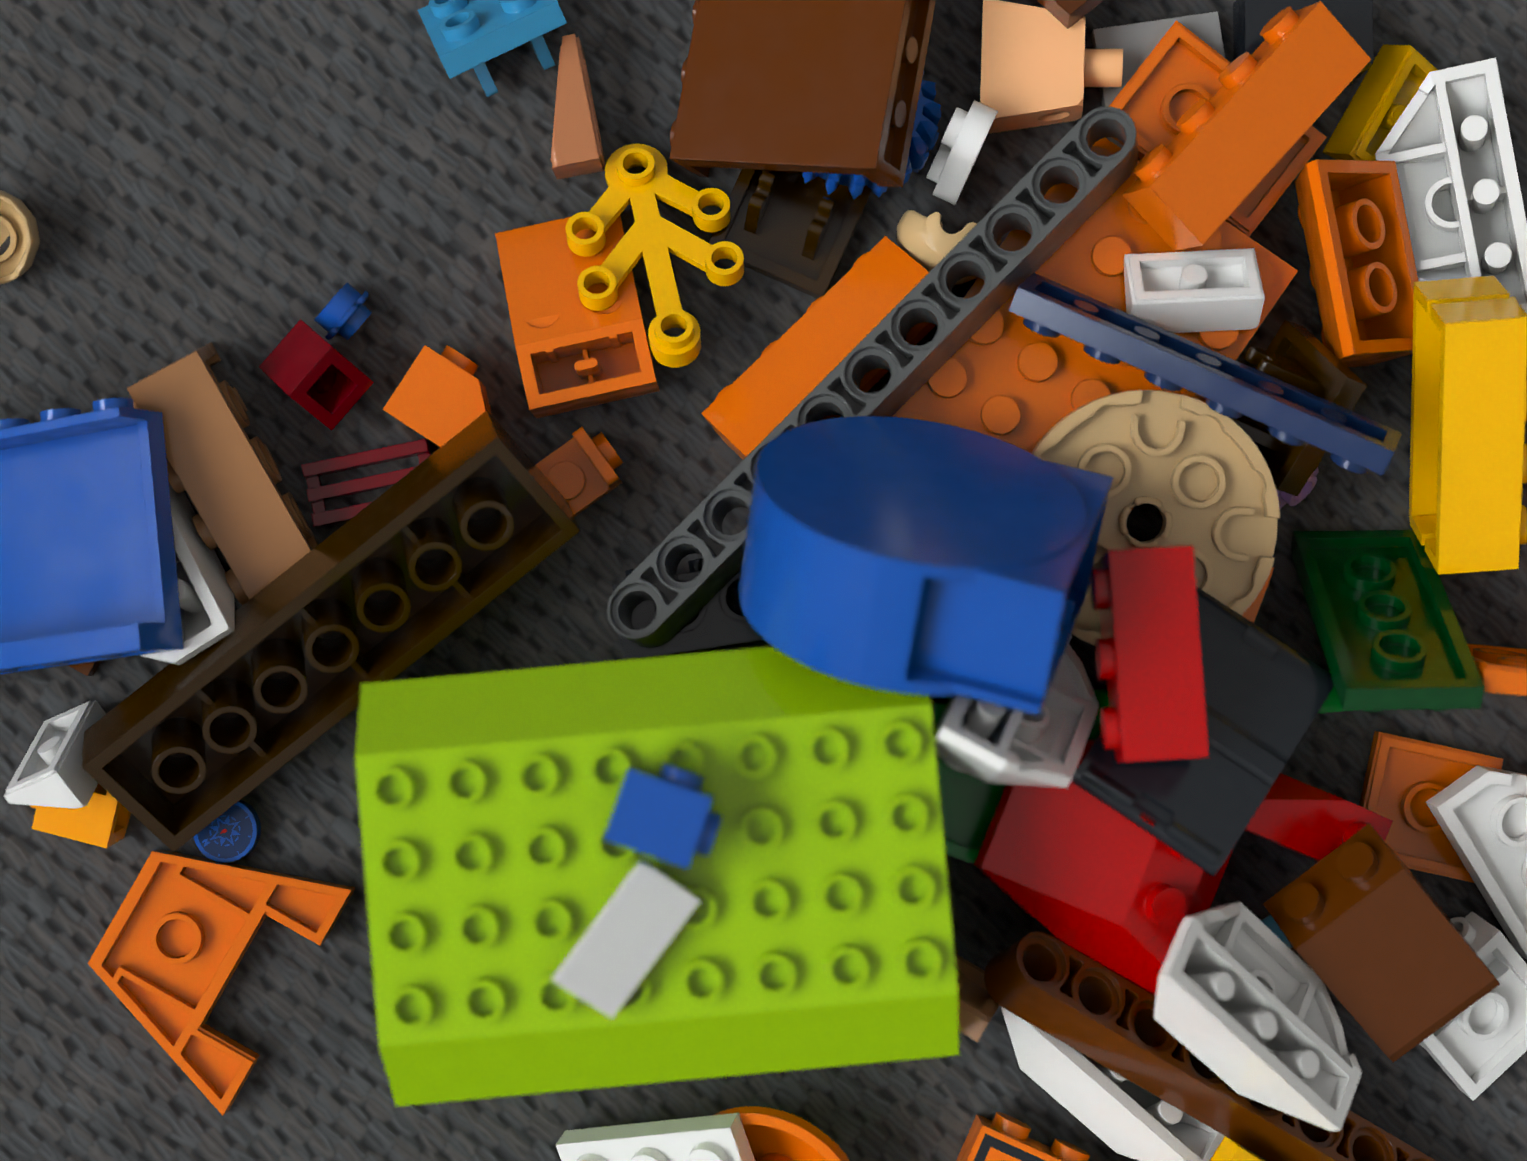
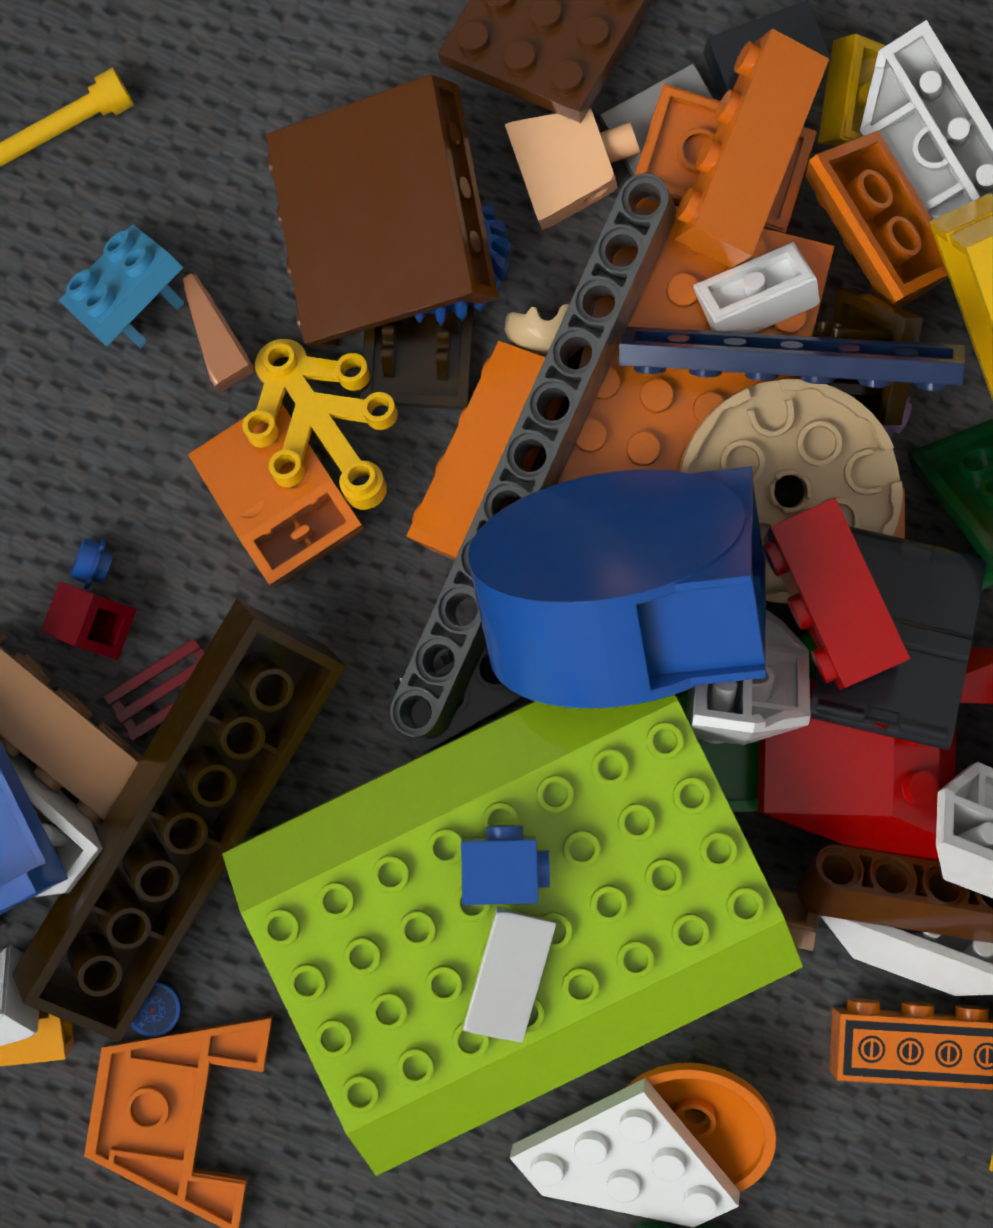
camera: 20 degrees left, 0 degrees up
(439, 395) = (193, 600): orange slope -> none
(582, 469) = (328, 615): orange bracket -> none
(960, 150) = (532, 250): white plate -> none

